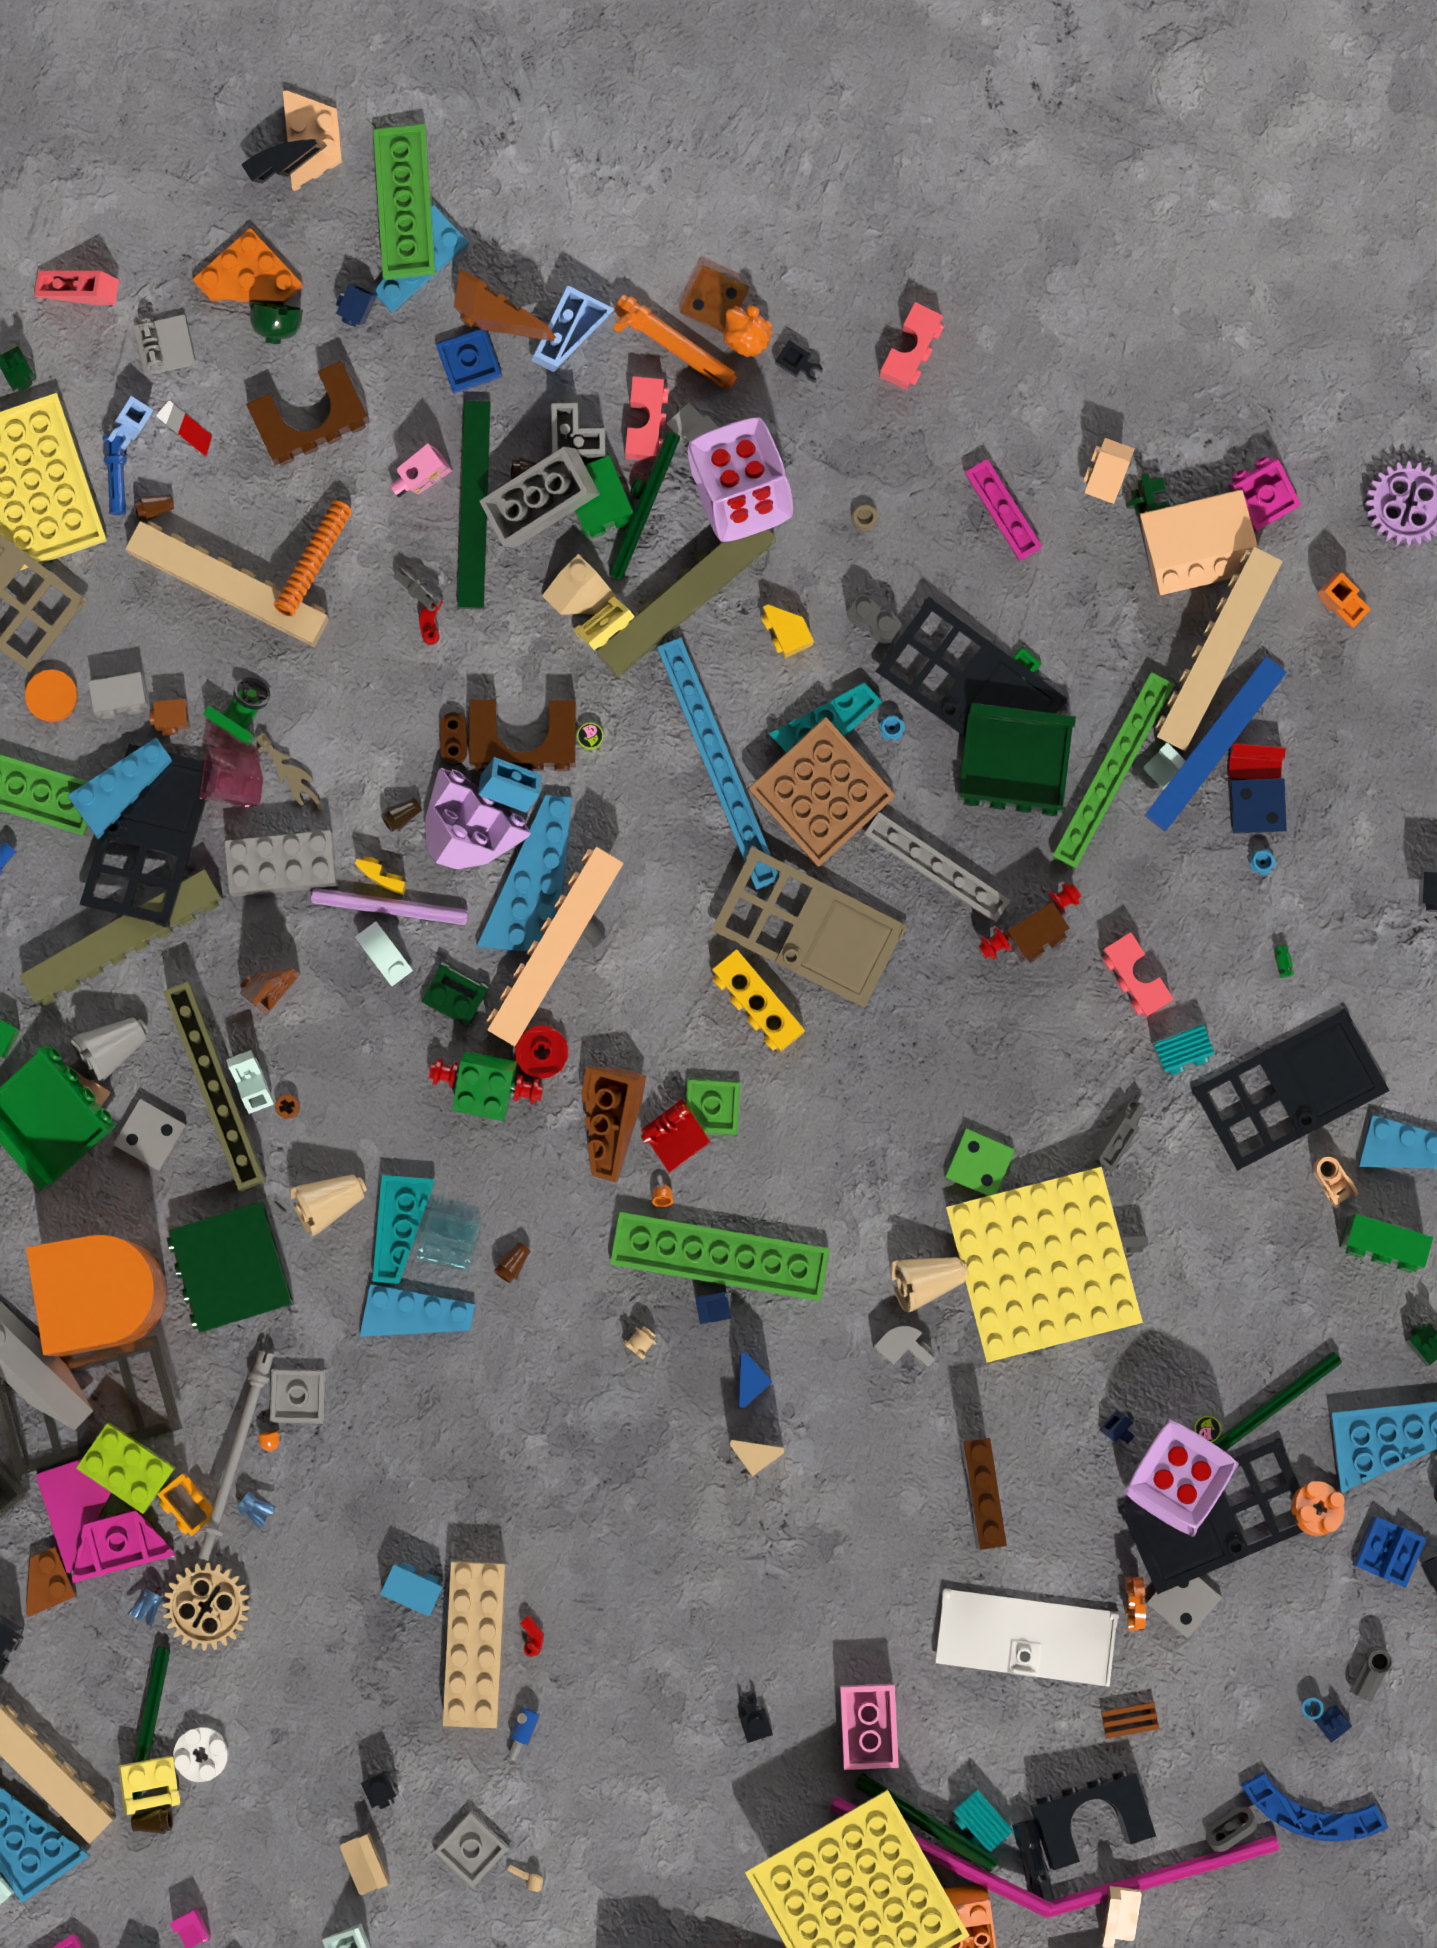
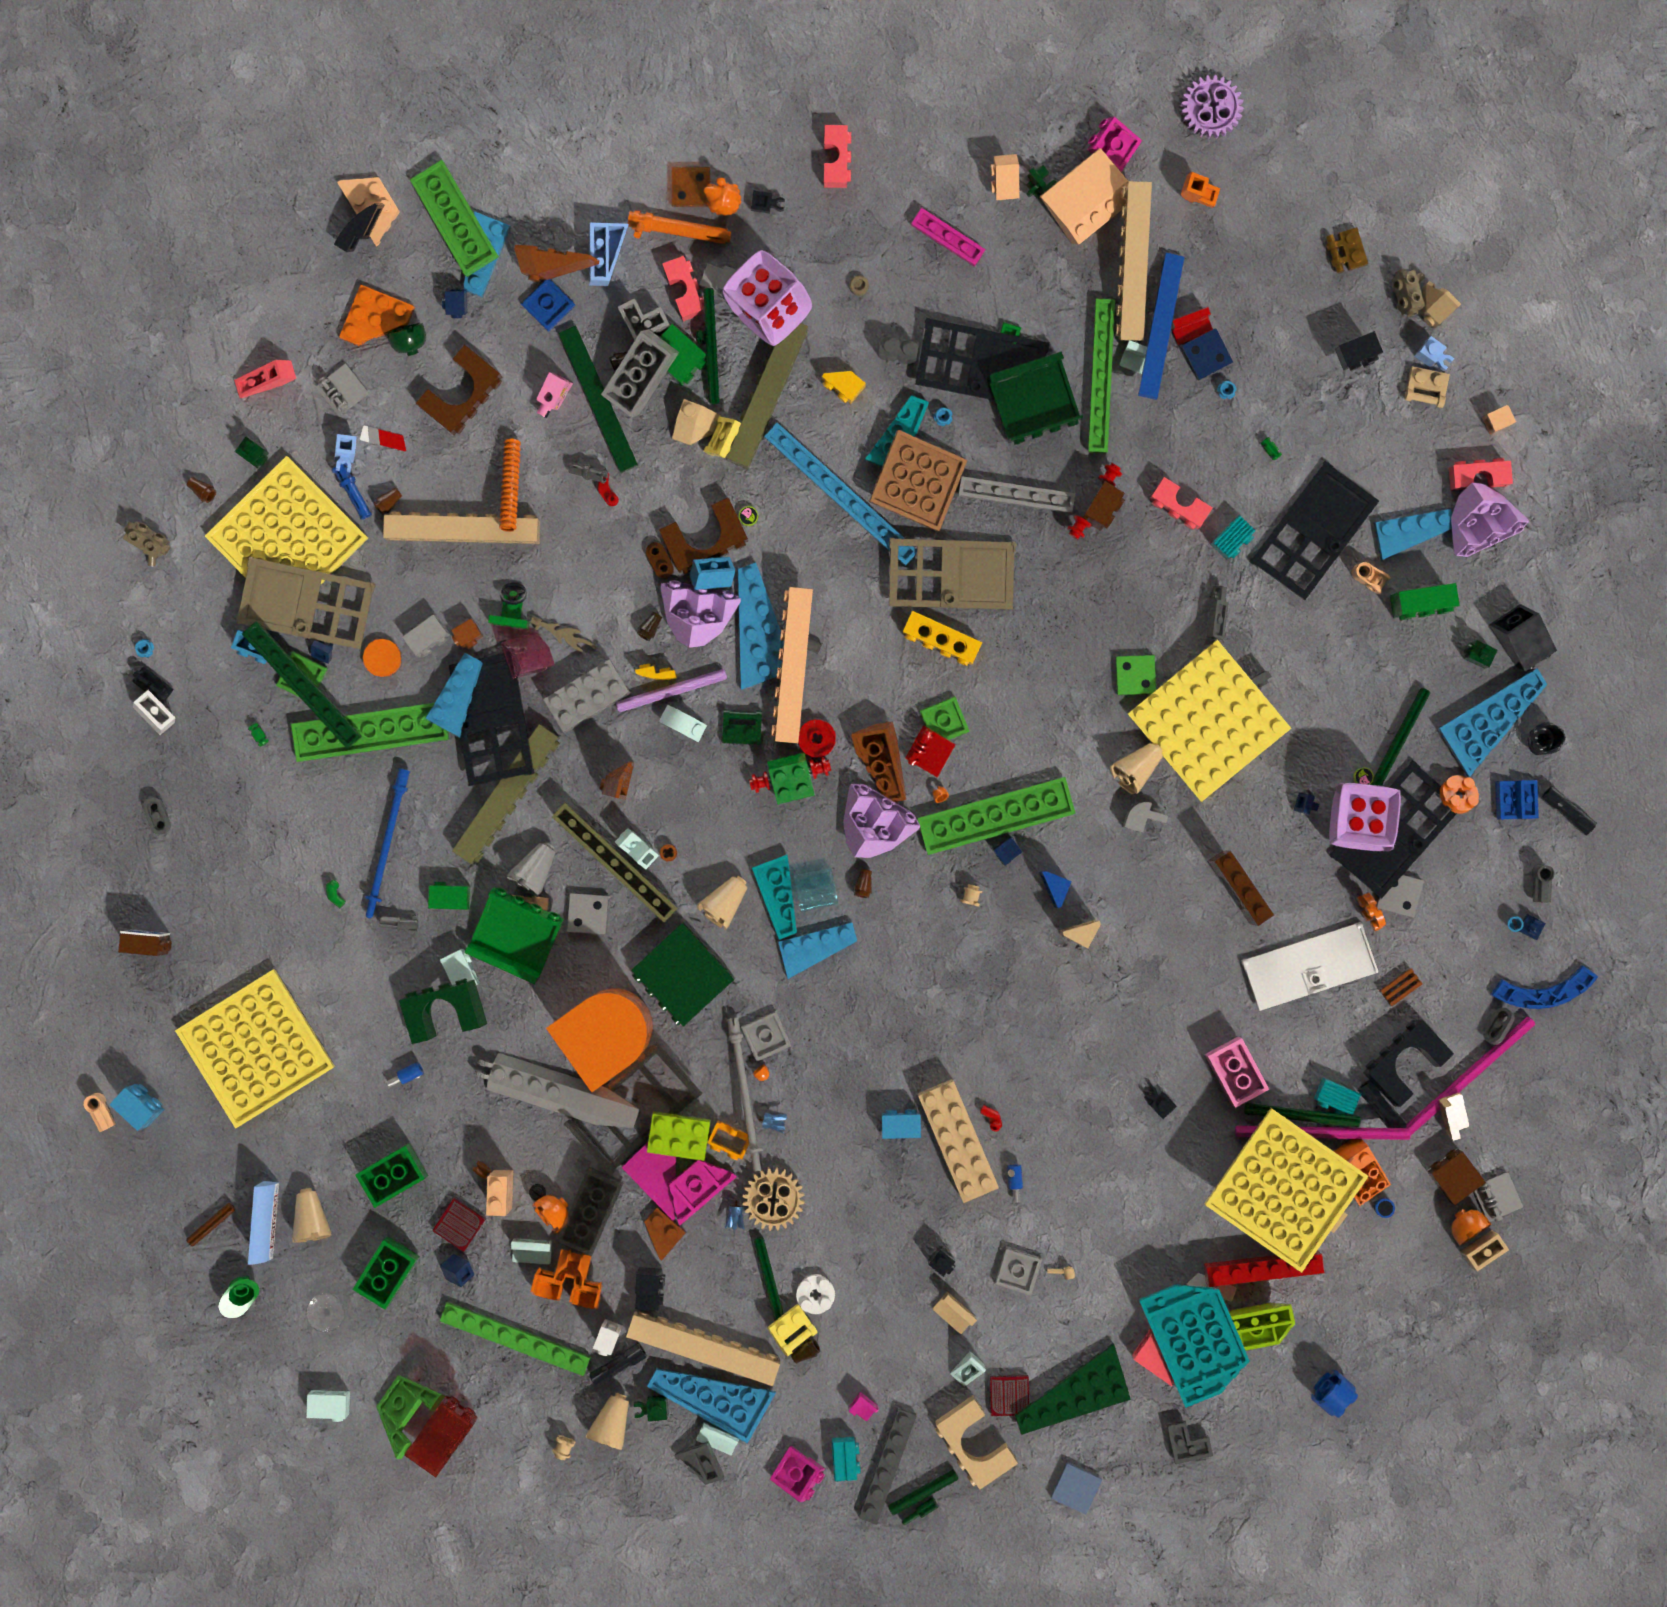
camera: 25 degrees left, 5 degrees up
(563, 1191) = (875, 822): none -> lavender brick

